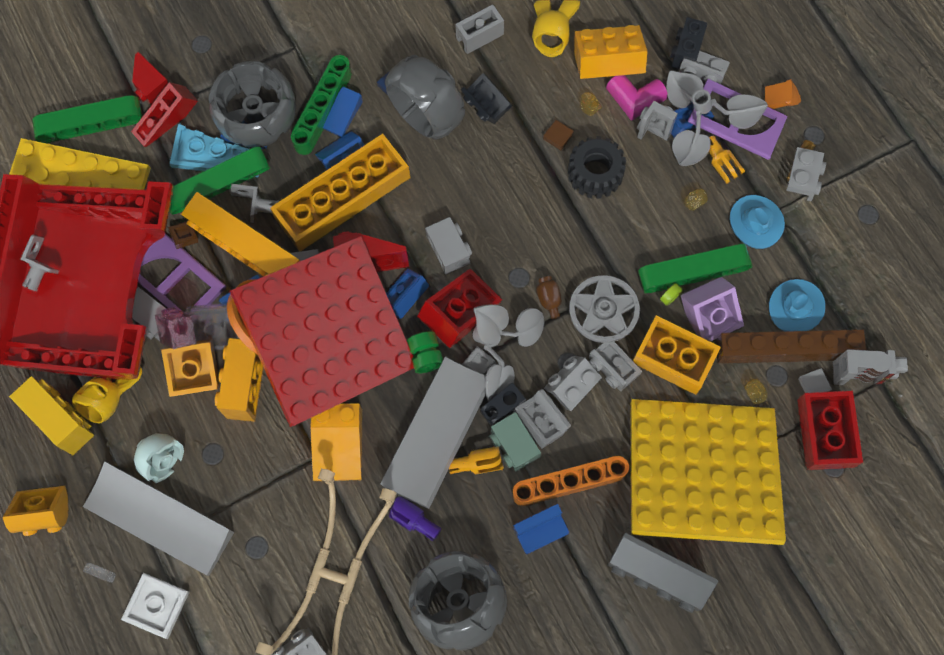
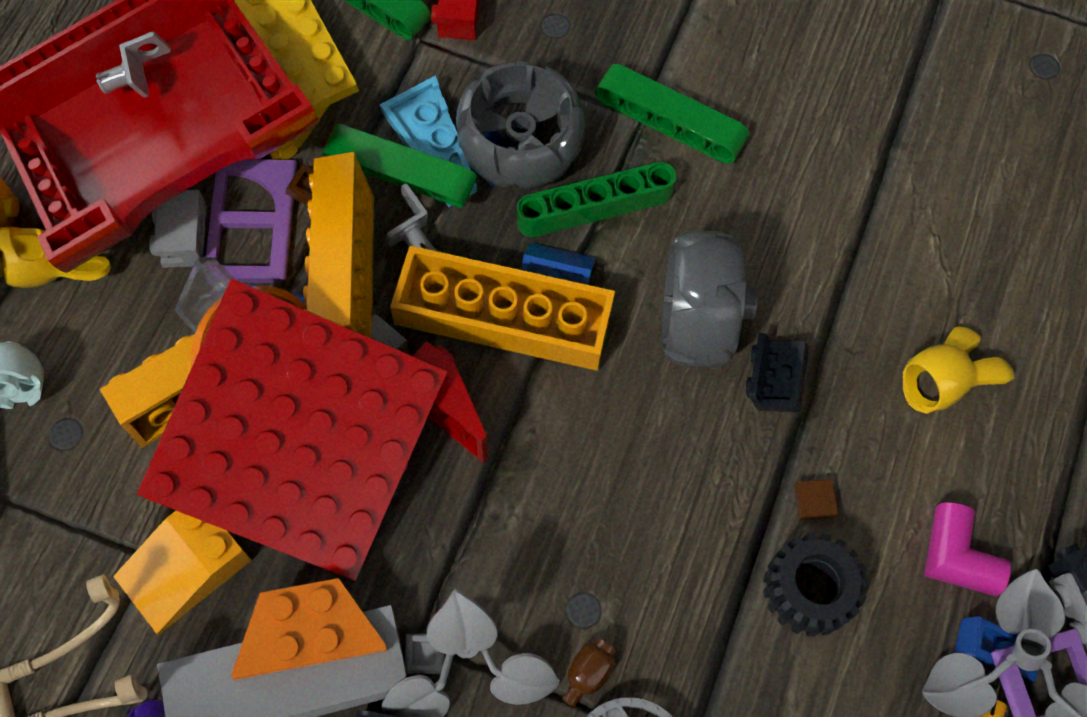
camera: 45 degrees right, 5 degrees down
(165, 112) = (441, 52): red slope -> none
(175, 328) = (169, 265): clear pink brick -> none
(191, 368) = (141, 319): light orange brick -> none
(307, 31) = (672, 113): none -> green beam
(343, 111) = (610, 229): blue slope -> none
(406, 292) = (442, 486): blue slope -> none
(424, 348) = (380, 575): green wheel -> none
(424, 402) = (305, 629): none -> orange wing
(448, 245) = (546, 487): light grey brick -> none
(452, 308) = (483, 563): red slope -> none
(480, 29) = (858, 291): light grey brick -> none
(589, 104) = (894, 504): clear yellow piece -> none
(610, 52) = (985, 471): light orange brick -> none
(657, 120) = (953, 610): light grey bracket -> none

